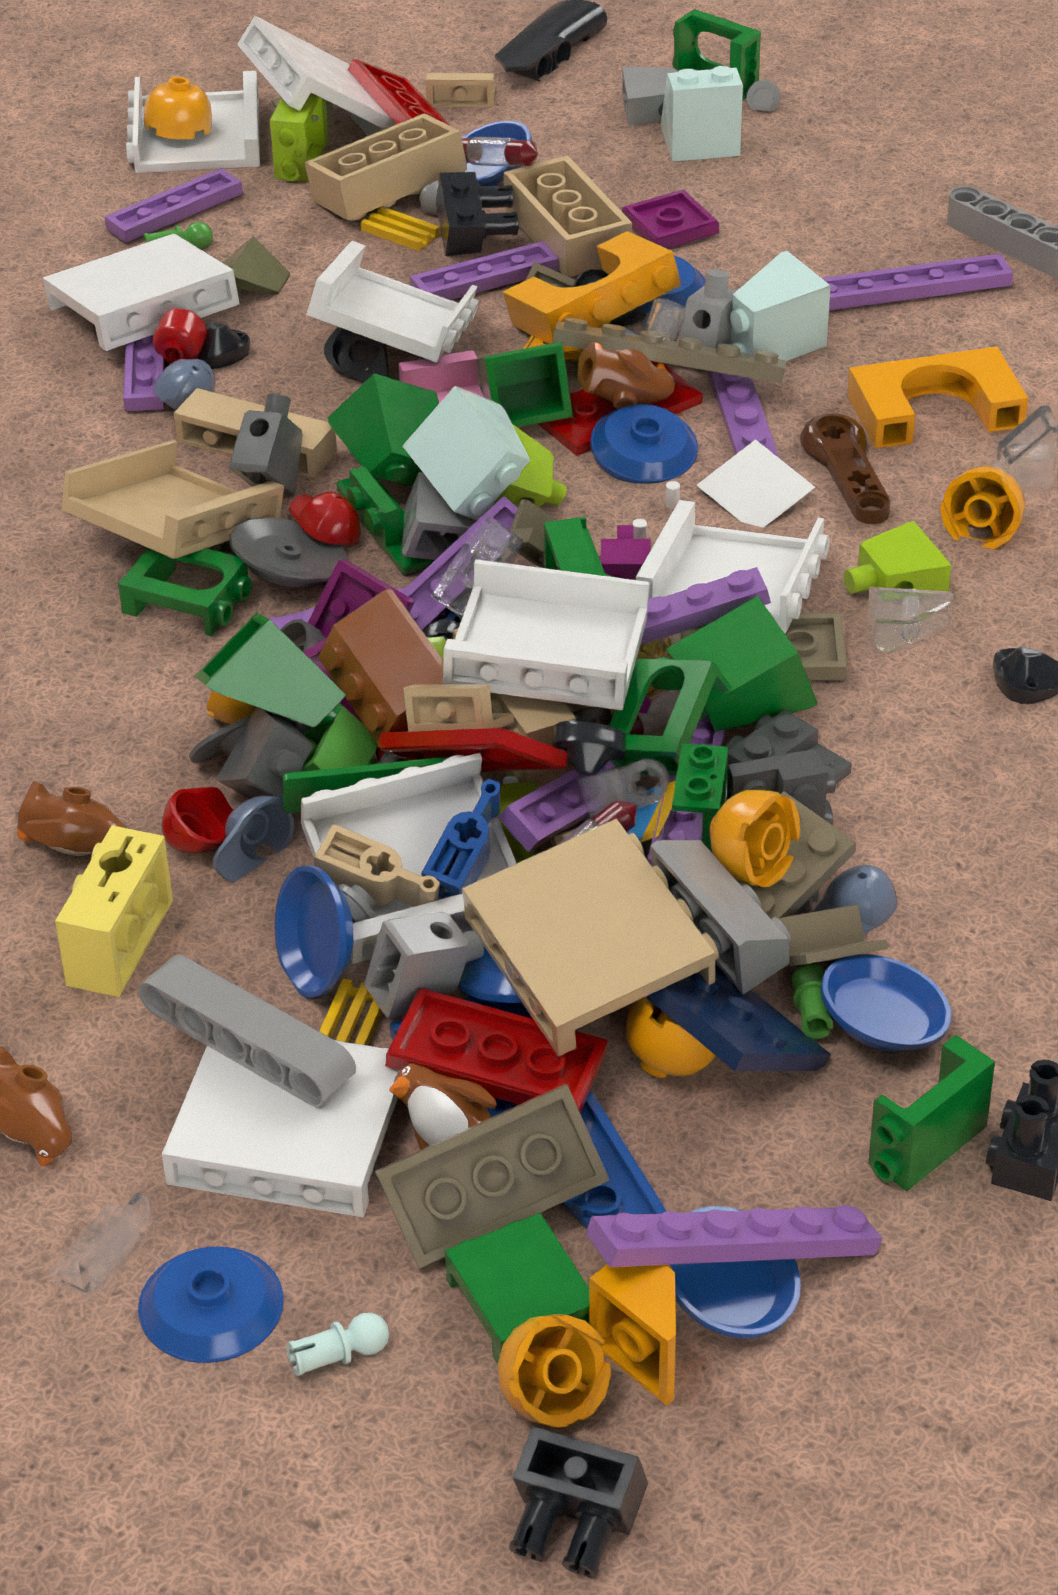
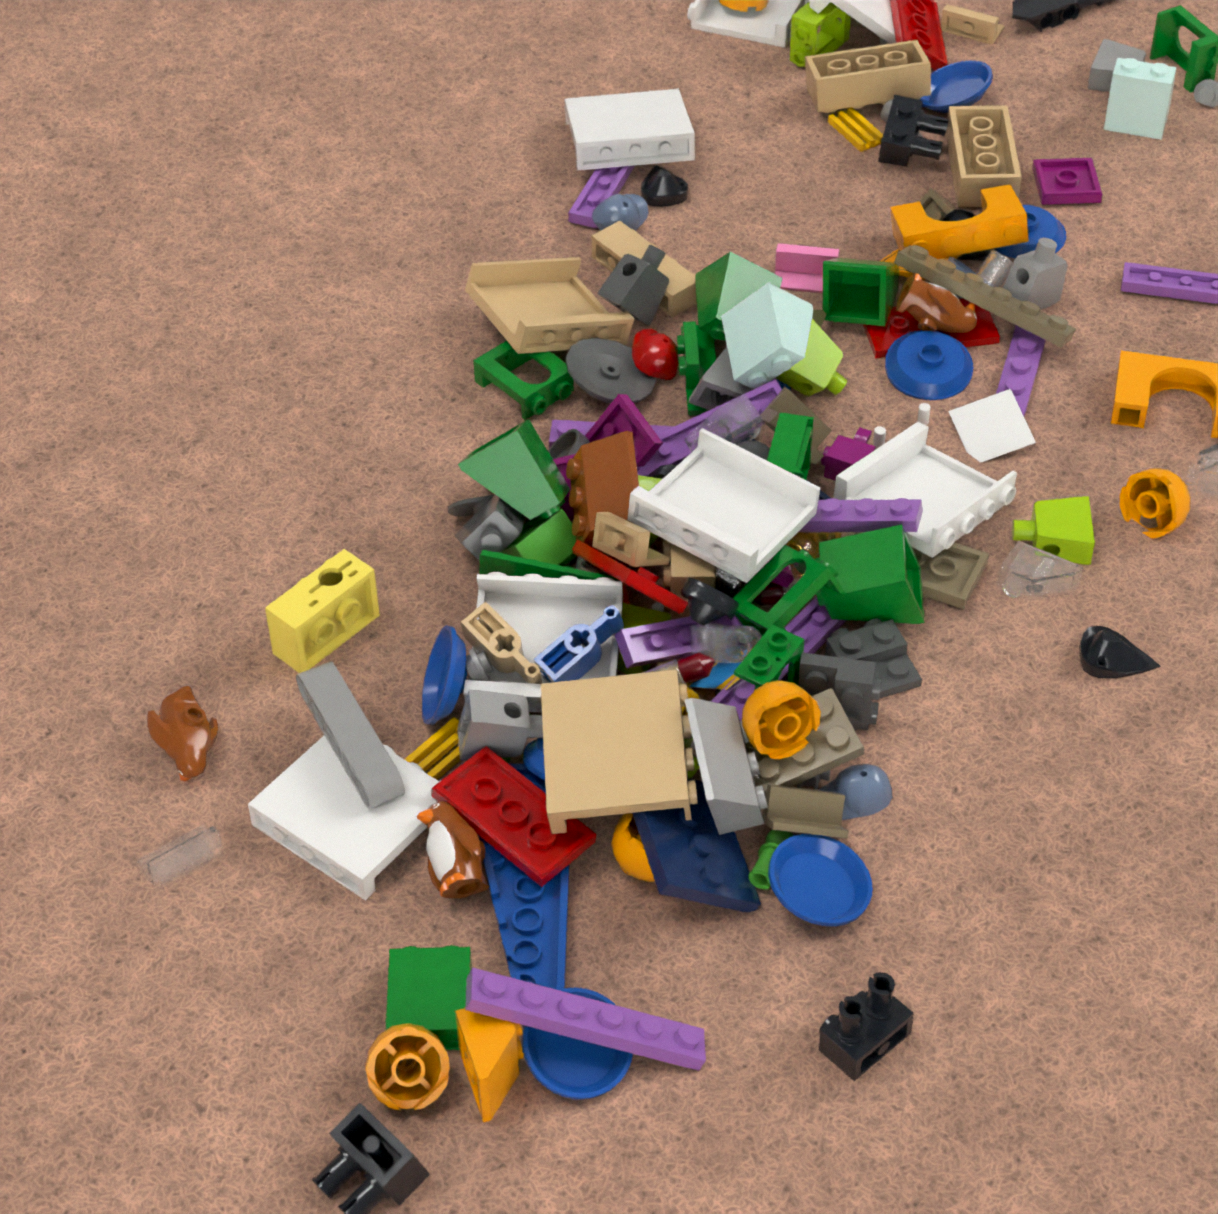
camera: 25 degrees right, 5 degrees up
(64, 822) = (336, 530): dark orange animal -> none
(173, 205) = (699, 63): medium lavender plate -> none
(179, 335) = (634, 174): red head -> none
(195, 819) = (431, 556): red cap -> none
(197, 234) = (701, 94): bright green pin -> none
(210, 1304) = (229, 924): blue piece -> none
(247, 827) = (450, 581): sand blue cap -> none
(257, 268) = (725, 134): olive slope -> none
(356, 355) = (759, 224): black piece -> none
(365, 1334) = (311, 987): light aqua pin -> none
(389, 308) = (792, 195): white panel -> none
(486, 271) = (893, 185): medium lavender plate -> none
(492, 1174) = (452, 905): dark tan plate -> none
(499, 151) = (955, 87): piece -> none
(781, 310) = (1092, 287): light aqua slope -> none
(847, 464) = (1077, 428): reddish brown beam -> none
(919, 1138) = (794, 987): green panel -> none

